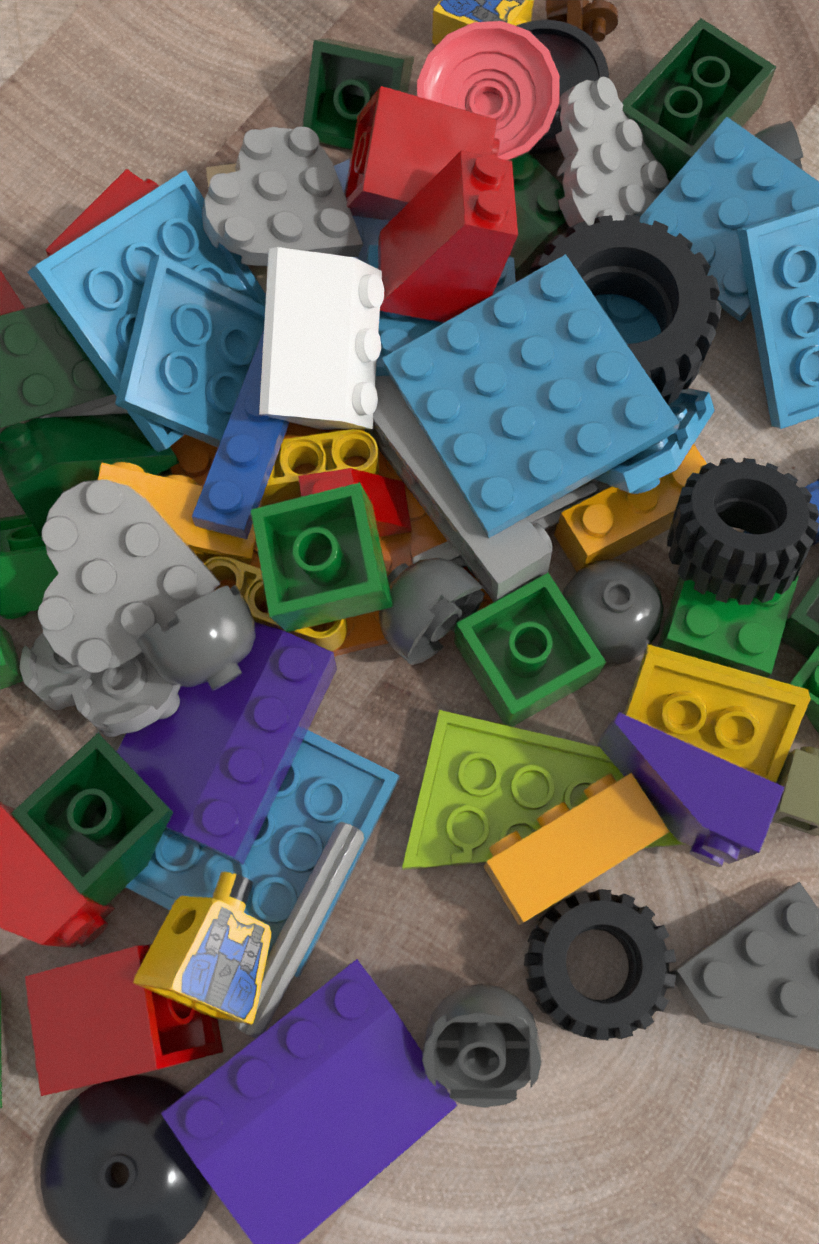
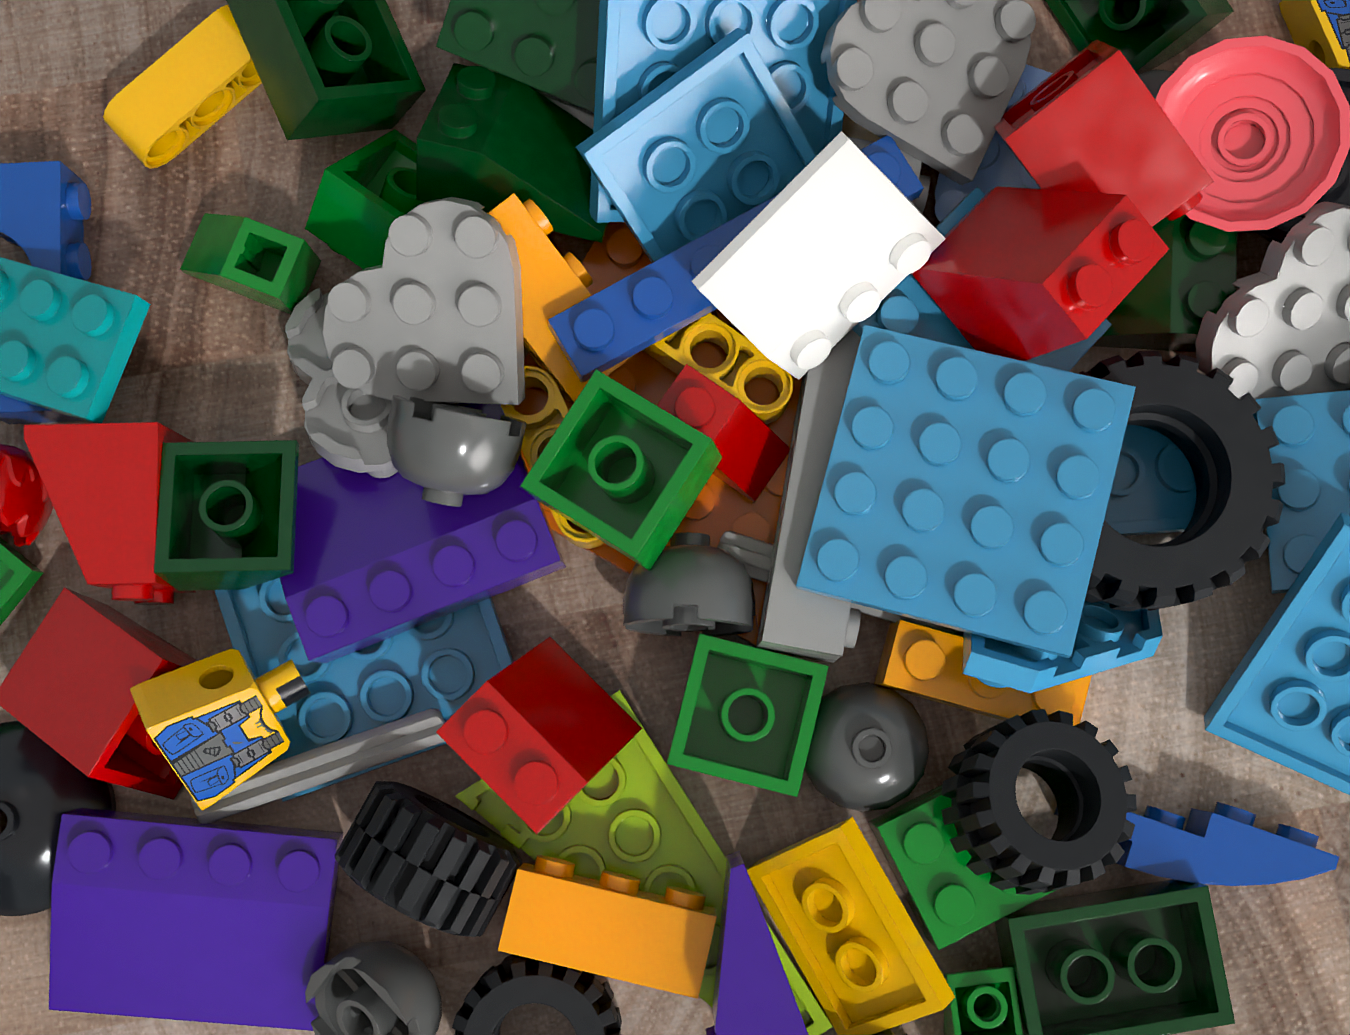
camera: 45 degrees right, 10 degrees up
(421, 771) = (539, 732): none -> red slope
(424, 911) = (428, 859): none -> black tyre

